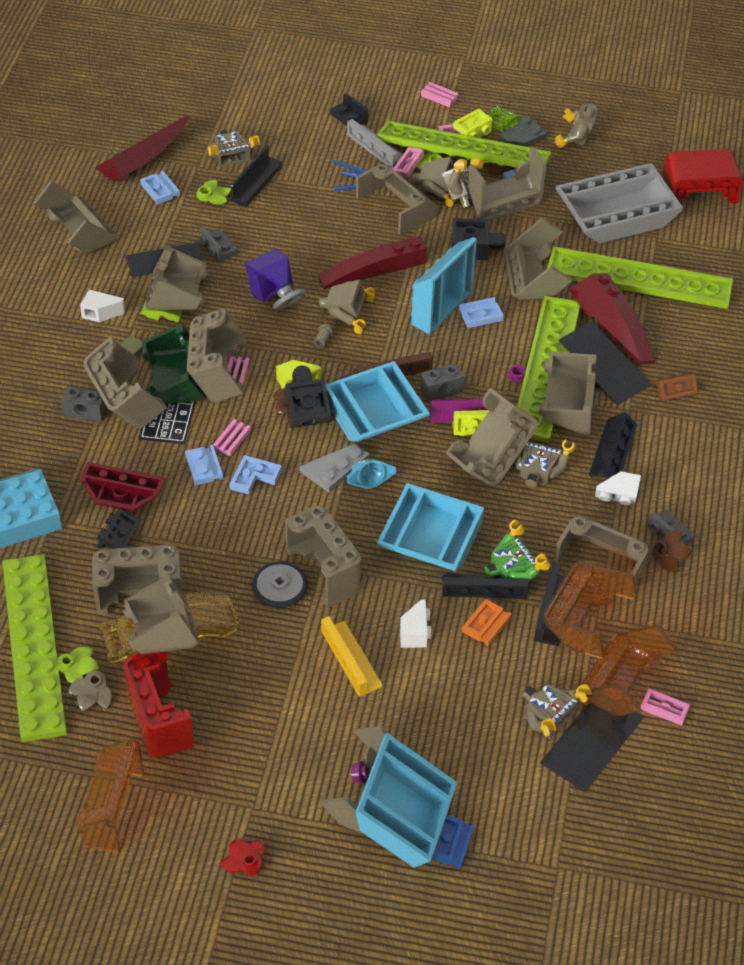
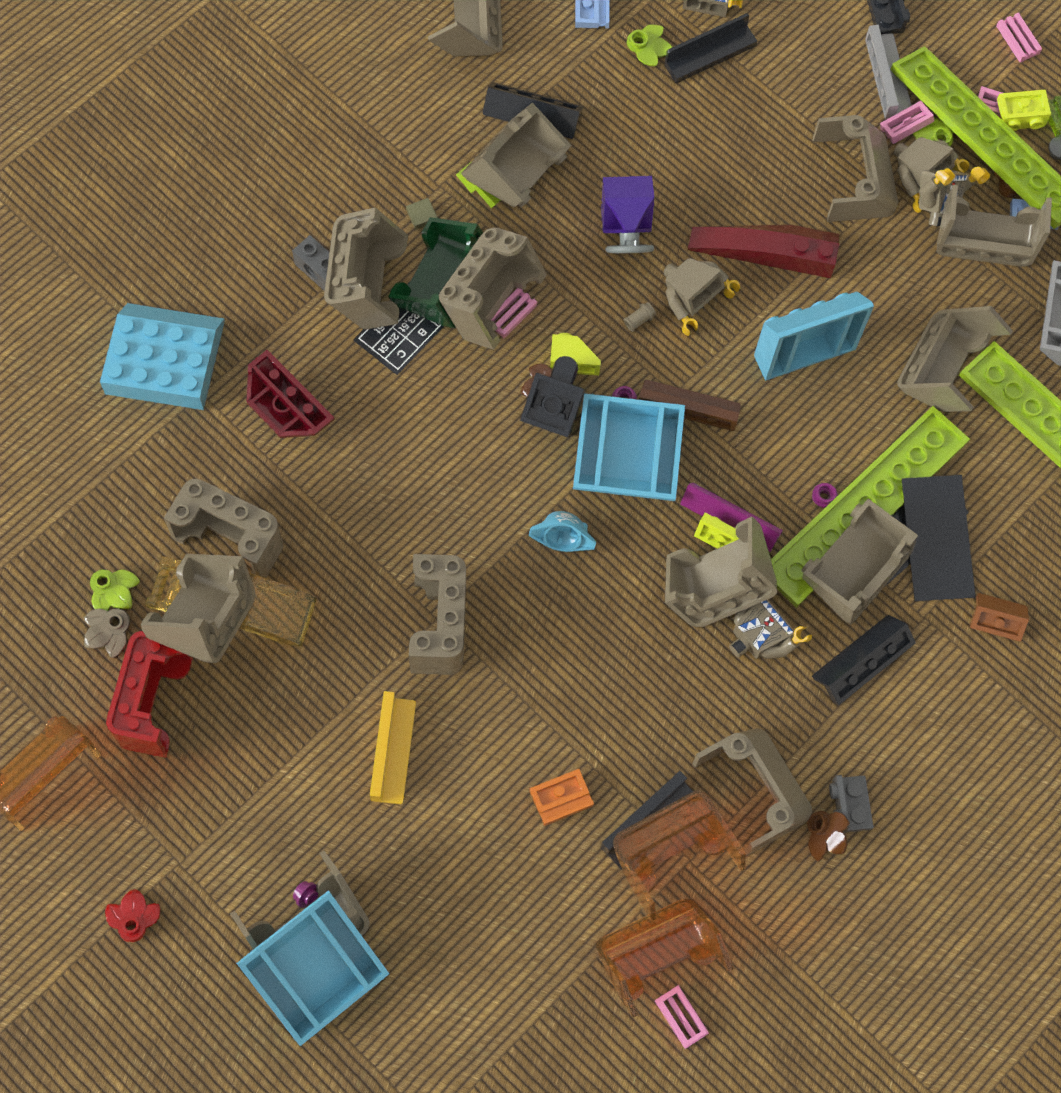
camera: 30 degrees right, 20 degrees up
(33, 649) = (84, 541): lime plate -> none
(101, 306) = (419, 140): white slope -> none
(119, 530) = (253, 451): black bracket -> none
(203, 465) = (398, 415): light blue plate -> none
(218, 244) = (607, 123): dark grey bracket -> none
(229, 435) = (465, 380): bright pink tile -> none
(254, 469) = (441, 453): light blue plate -> none
(267, 582) = (379, 631): light grey wheel -> none
(334, 467) = (534, 500): light grey wing -> none
(360, 171) = (835, 111): blue plant -> none
(414, 626) = (479, 755): white slope -> none
(432, 527) = (576, 649): medium azure slope -> none
(442, 382) = (727, 459): dark grey brick -> none
(453, 841) = (345, 1032): blue plate -> none
(479, 228) = (912, 276): black brick -> none
(481, 312) = (842, 386): light blue plate -> none
(483, 587) = (593, 748): black panel -> none
(513, 559) = (642, 739): torso -> none
(552, 707) = (553, 945): torso -> none
(589, 745) = (567, 1010): black sticker -> none
(607, 304) = (995, 472): dark red wedge -> none
(620, 488) = (830, 718): white slope -> none

